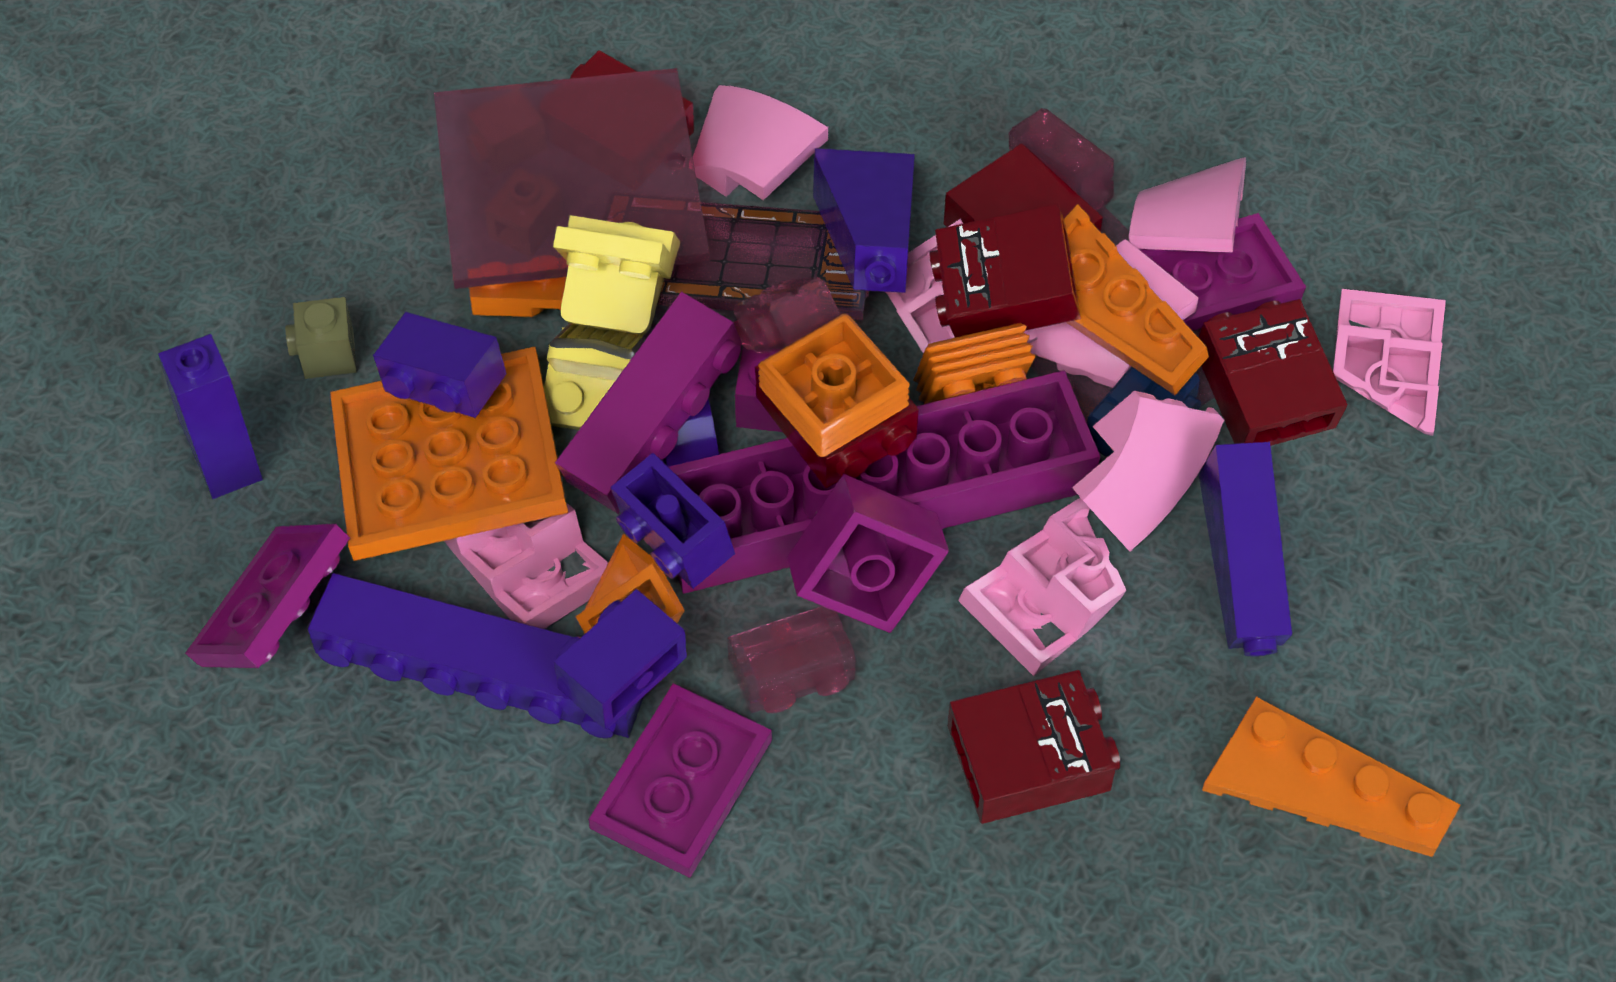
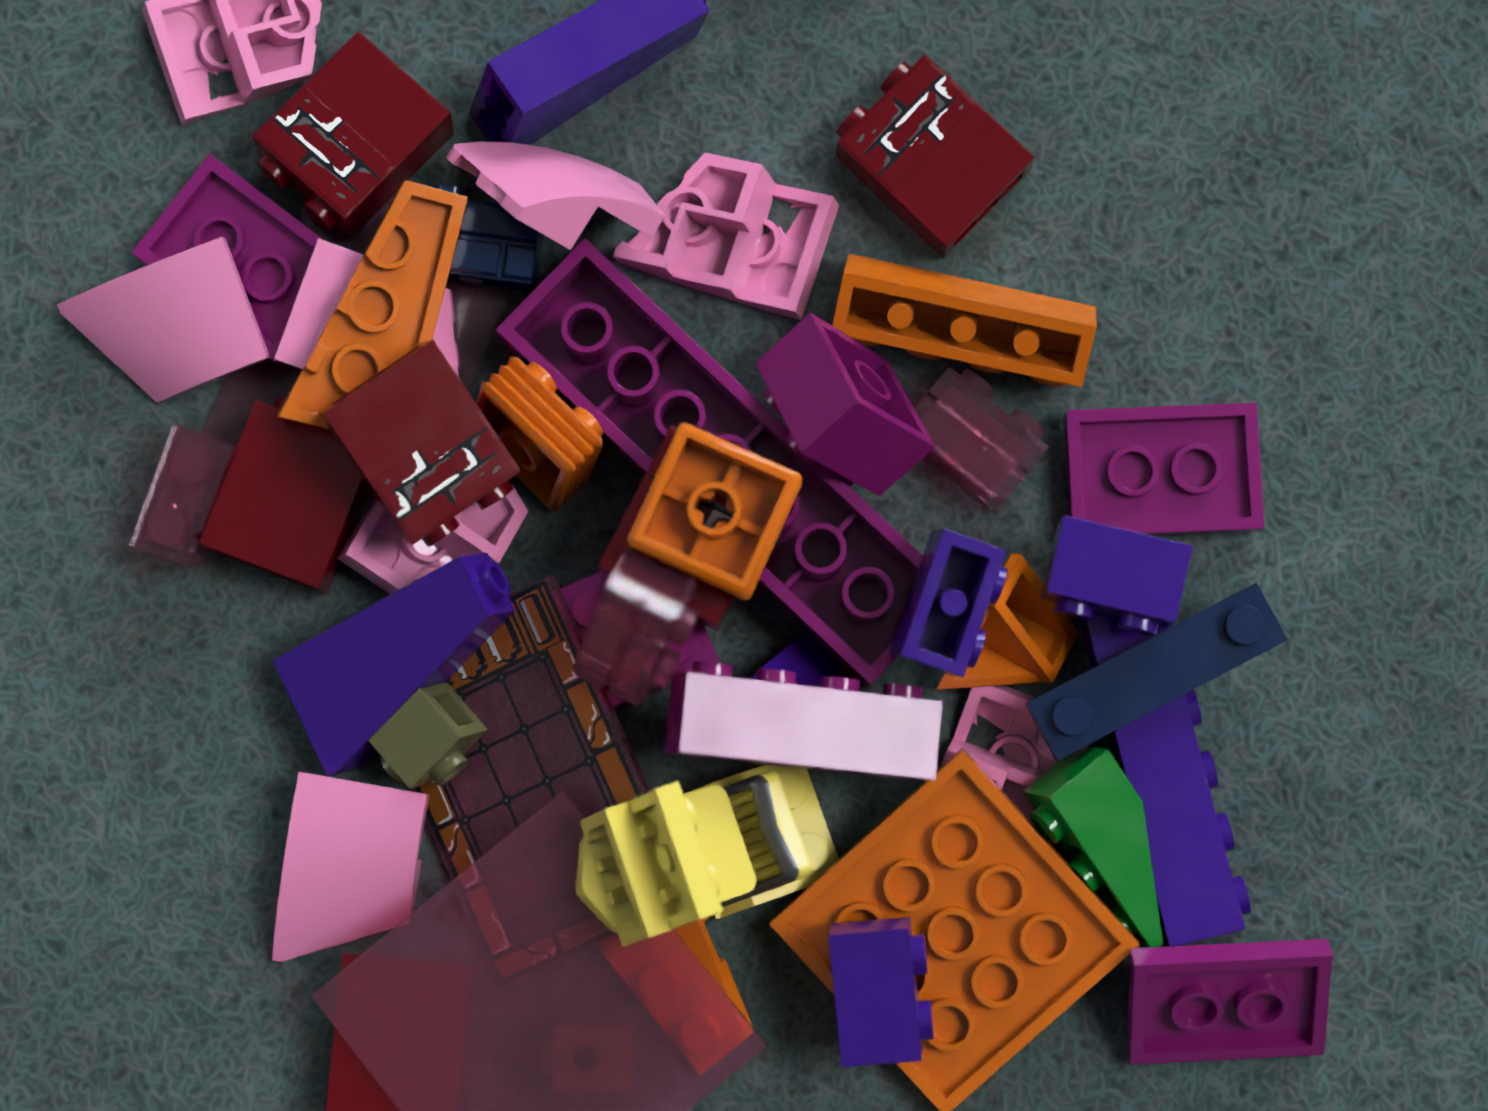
camera: 120 degrees left, 25 degrees up
(458, 568) = (1103, 832): none -> green slope
(528, 674) = (1156, 672): none -> dark blue plate
(801, 210) = (428, 737): none -> olive brick
(884, 689) = (965, 321): none -> orange brick

